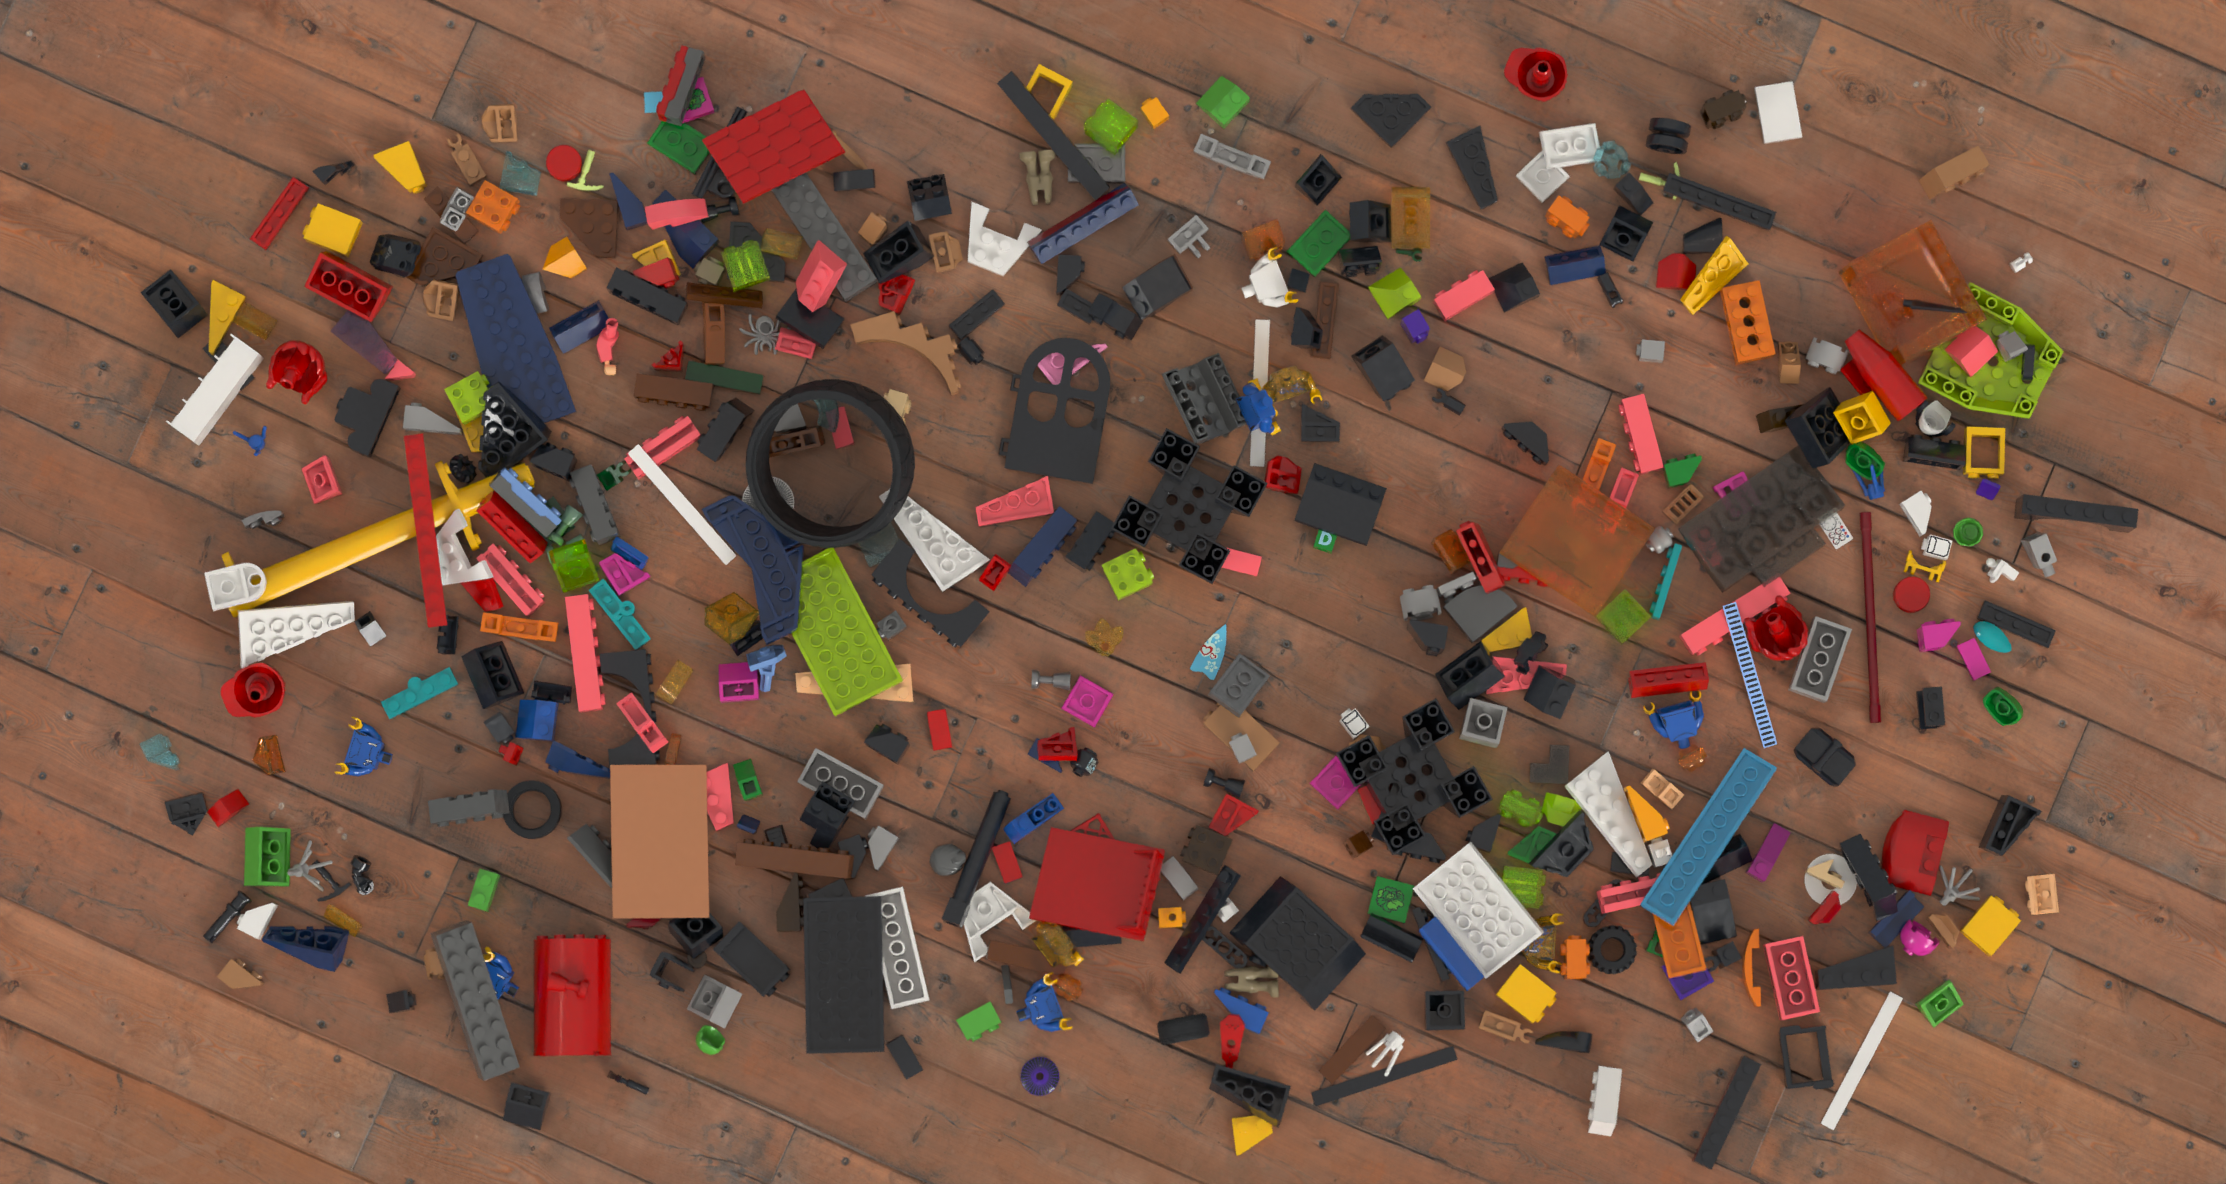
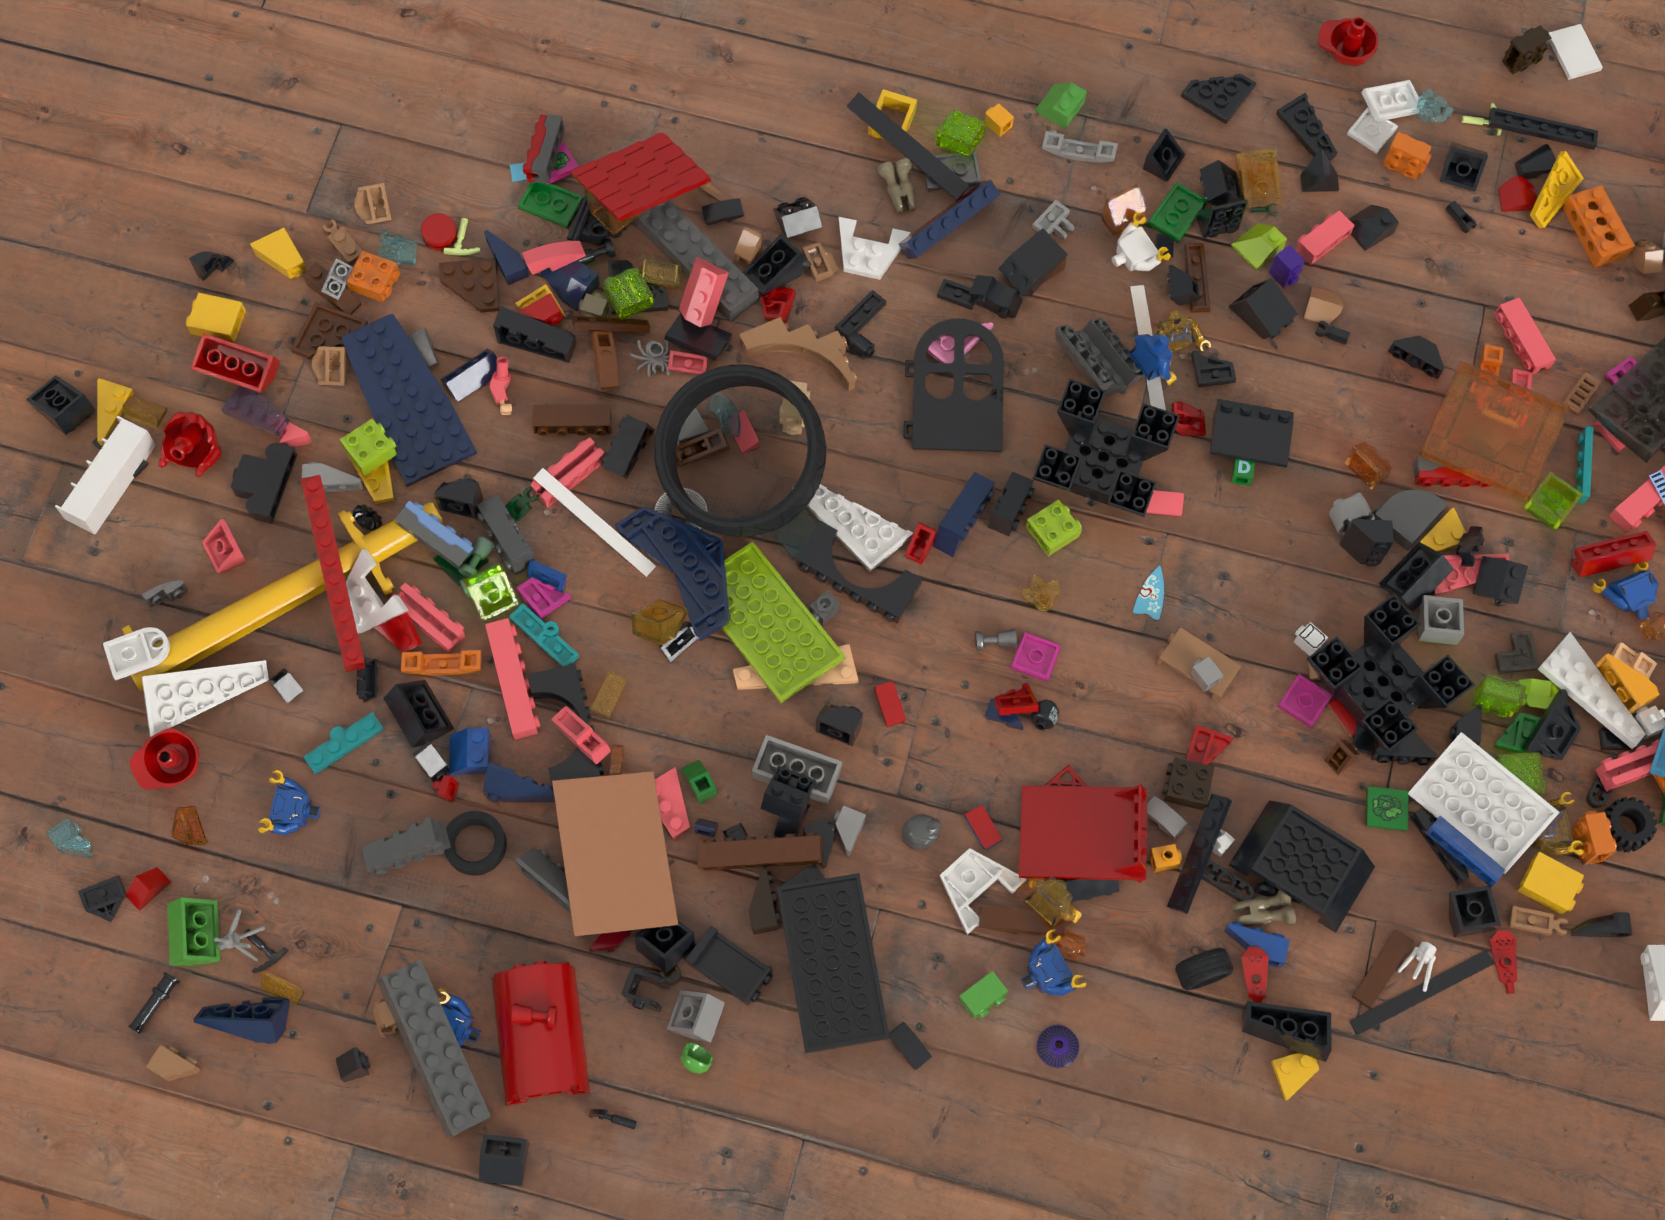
camera: 10 degrees left, 15 degrees down
(256, 442) = (152, 521): blue plant -> none
(256, 920) = (186, 1001): white slope -> none
(279, 213) = (162, 312): red tile -> none
(362, 882) = (300, 946): black arm -> none
(395, 255) = (280, 331): black shield -> none
(484, 890) = (432, 933): bright green brick -> none
(508, 431) = (409, 470): black slope -> none
(512, 526) = (422, 561): red brick -> none
(551, 691) = (492, 720): black hinge -> none
(564, 259) = (450, 315): light orange slope -> none
(672, 359) = (567, 392): red slope -> none
(724, 377) = (624, 401): dark green tile -> none
(738, 683) = (676, 686): dark pink slope -> none
(765, 661) = (702, 662): medium blue piece -> none
(900, 953) = (893, 947): white brick -> none
(958, 905) = (942, 870): black brick -> none
(1007, 984) = (1006, 952): dark grey tile -> none
(1024, 503) = (936, 478): coral wing -> none
(1033, 818) = (1001, 779): blue slope -> none
(1068, 271) = (943, 263): black slope -> none
(1231, 785) = (1200, 716): black piece -> none
(1238, 685) = (1187, 617): flat silver tile -> none
(1391, 937) = (1398, 844): black panel -> none
(1464, 582) = (1384, 491): light grey plate -> none
(1471, 1050) = (1505, 951): none -> red piece
(1475, 222) = (1319, 175): none -> black slope
(1480, 556) = (1402, 460): red slope -> none
(1575, 265) = (1423, 200): dark blue panel -> none
(1633, 194) = (1460, 130): black slope -> none
(1650, 351) = (1514, 262): light grey brick -> none
(1660, 540) = (1570, 428): light grey piece -> none
(1668, 136) = (1483, 76): black wheel -> none
(1680, 472) = (1570, 364): green slope -> none

